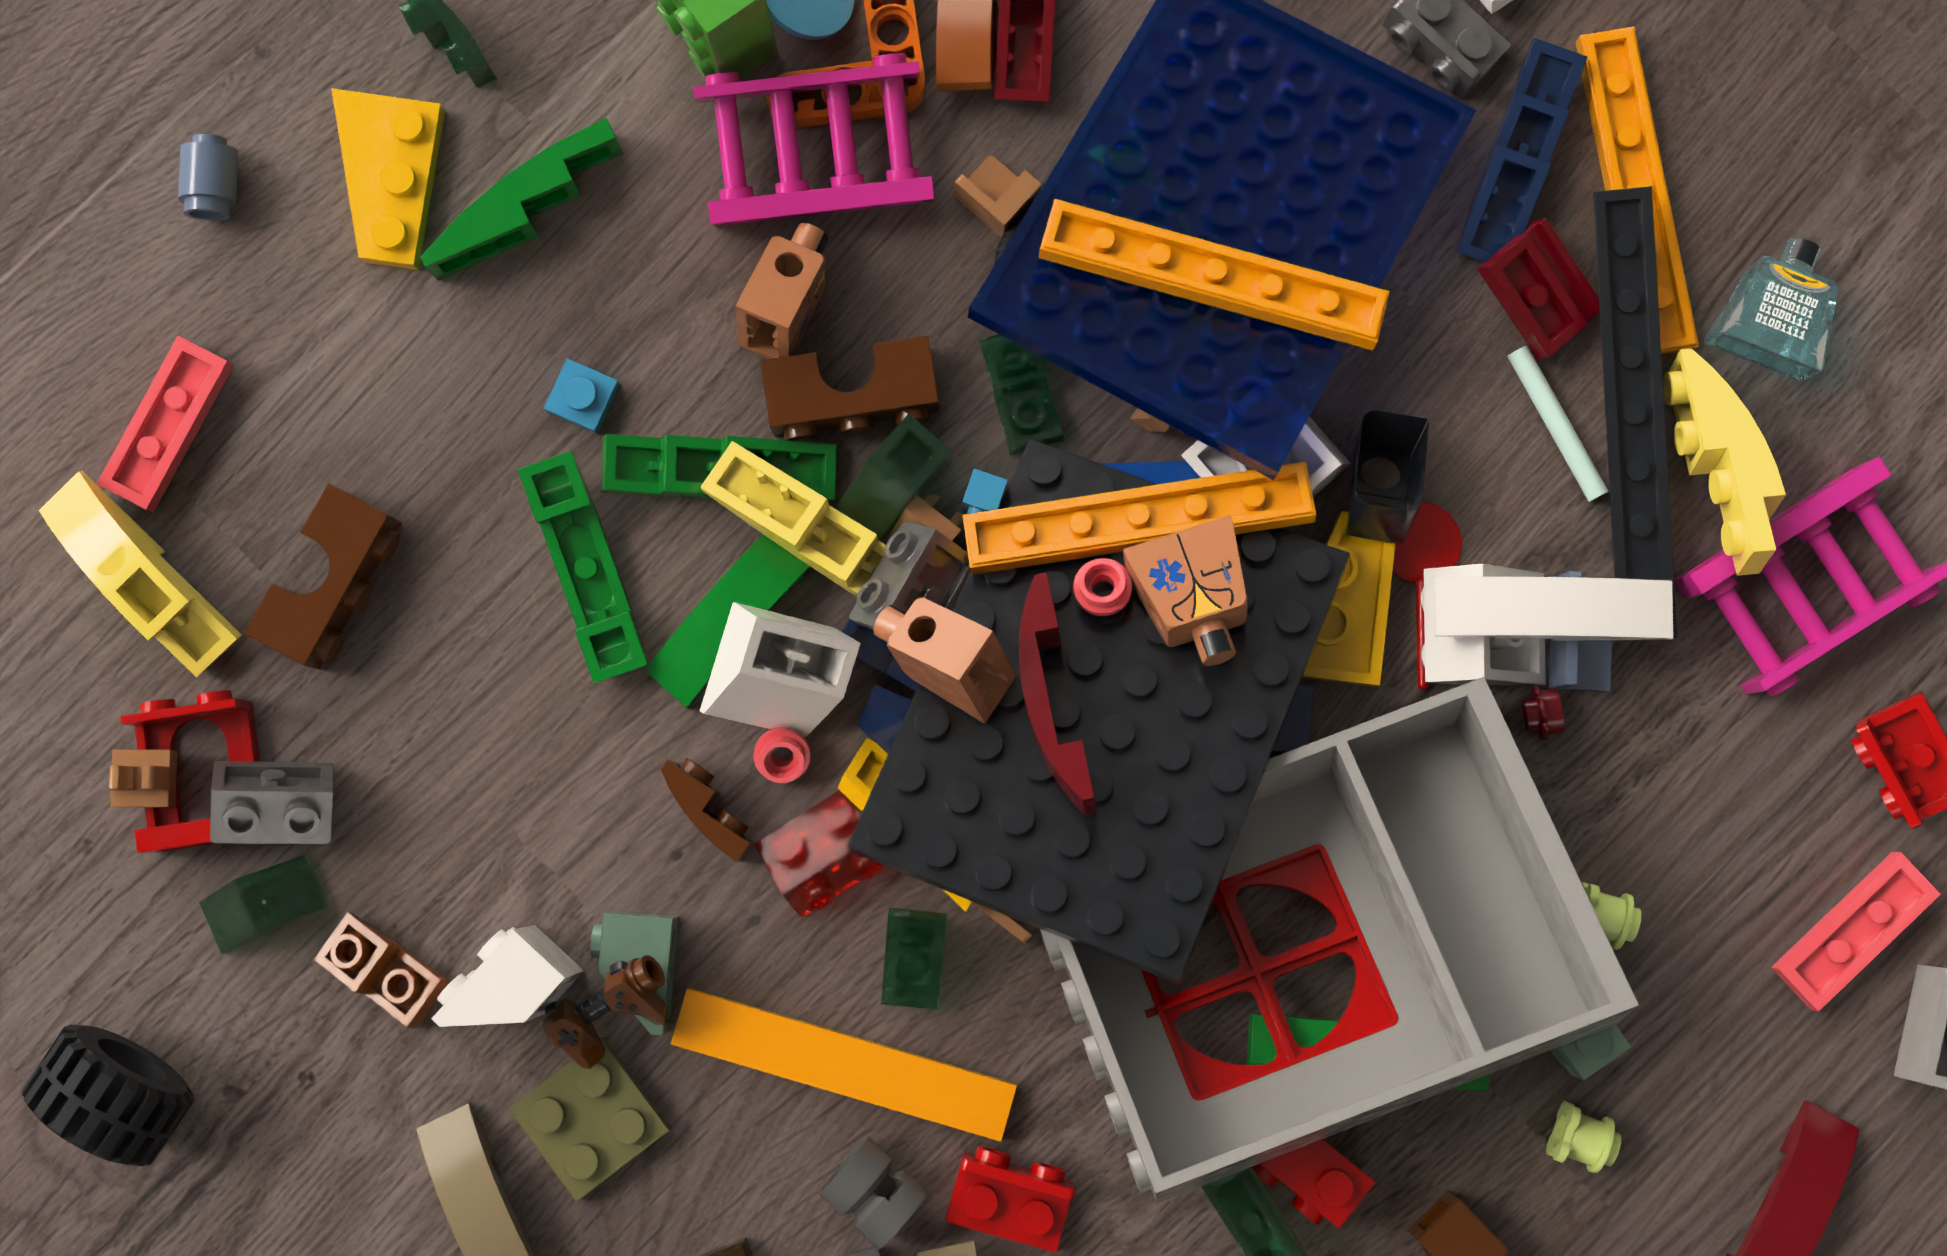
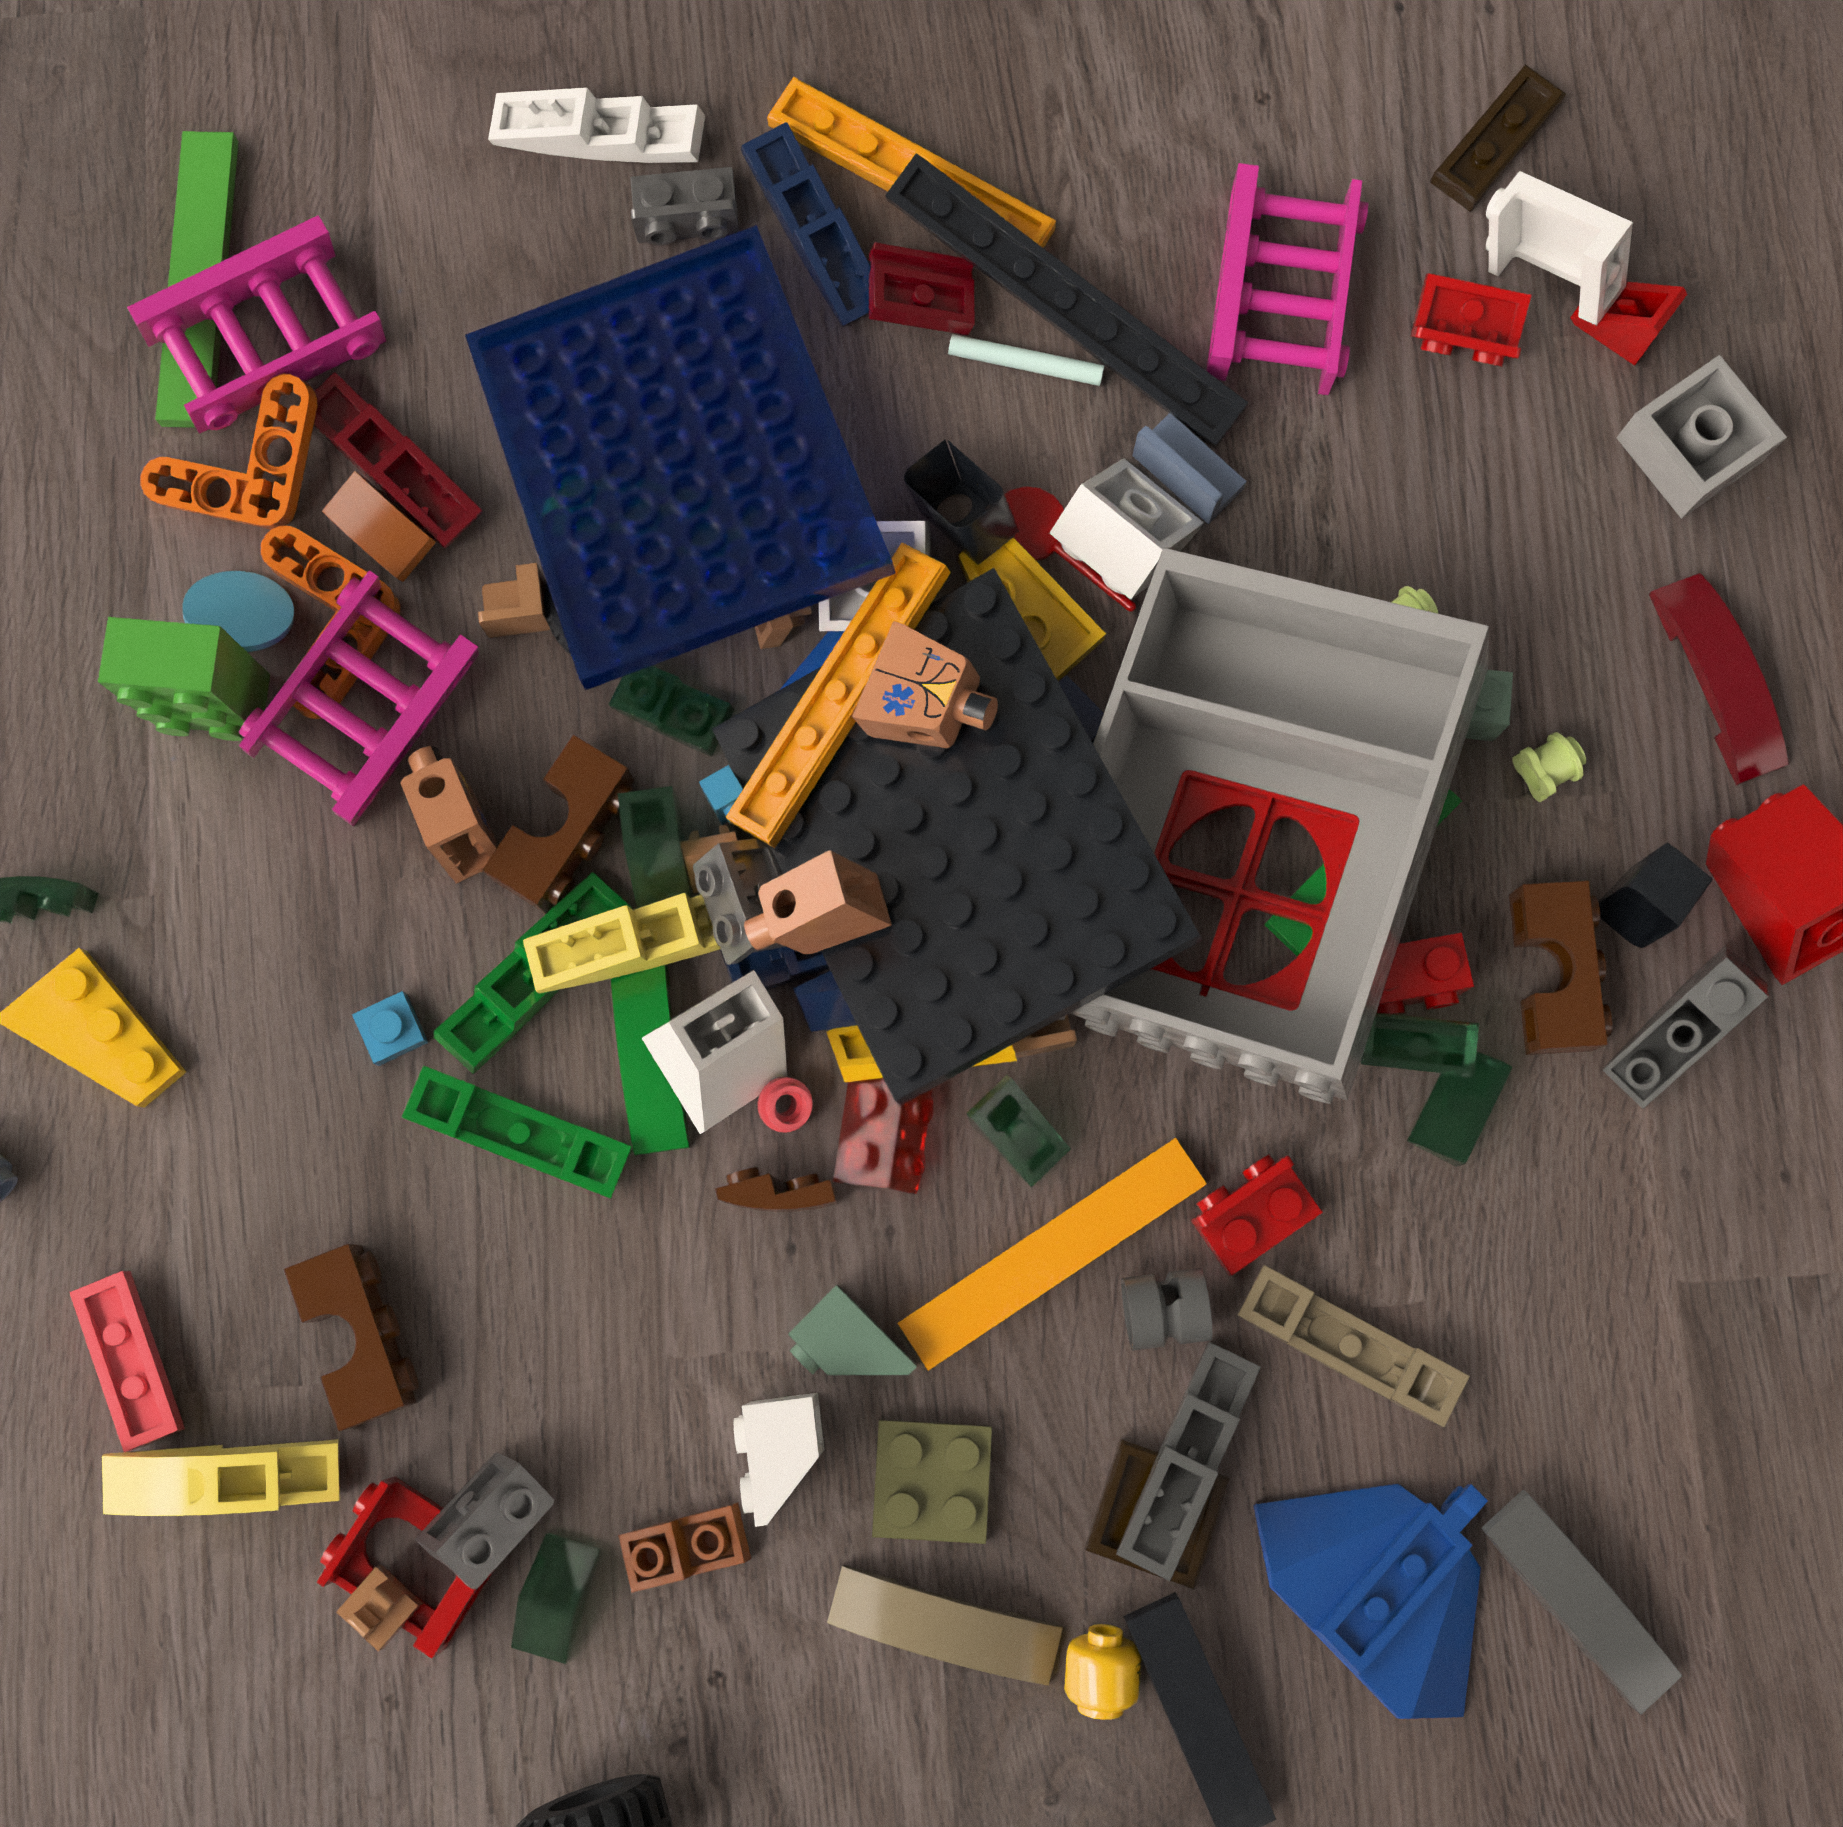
camera: 45 degrees left, 5 degrees down
(504, 212) = (203, 969): green slope -> none
(627, 990) = (860, 1360): reddish brown piece -> none
(1041, 632) = (970, 886): dark red slope -> none
(1102, 571) = (859, 745): coral plate -> none
(1214, 274) = (710, 492): light orange tile -> none
(1543, 712) = (1223, 539): dark red plate -> none
(1554, 608) = (1154, 462): white slope -> none
(1725, 442) = (1140, 254): light yellow slope -> none
(1779, 313) = (1081, 148): clear light blue torso -> none
(1855, 931) = (1558, 458): coral plate -> none

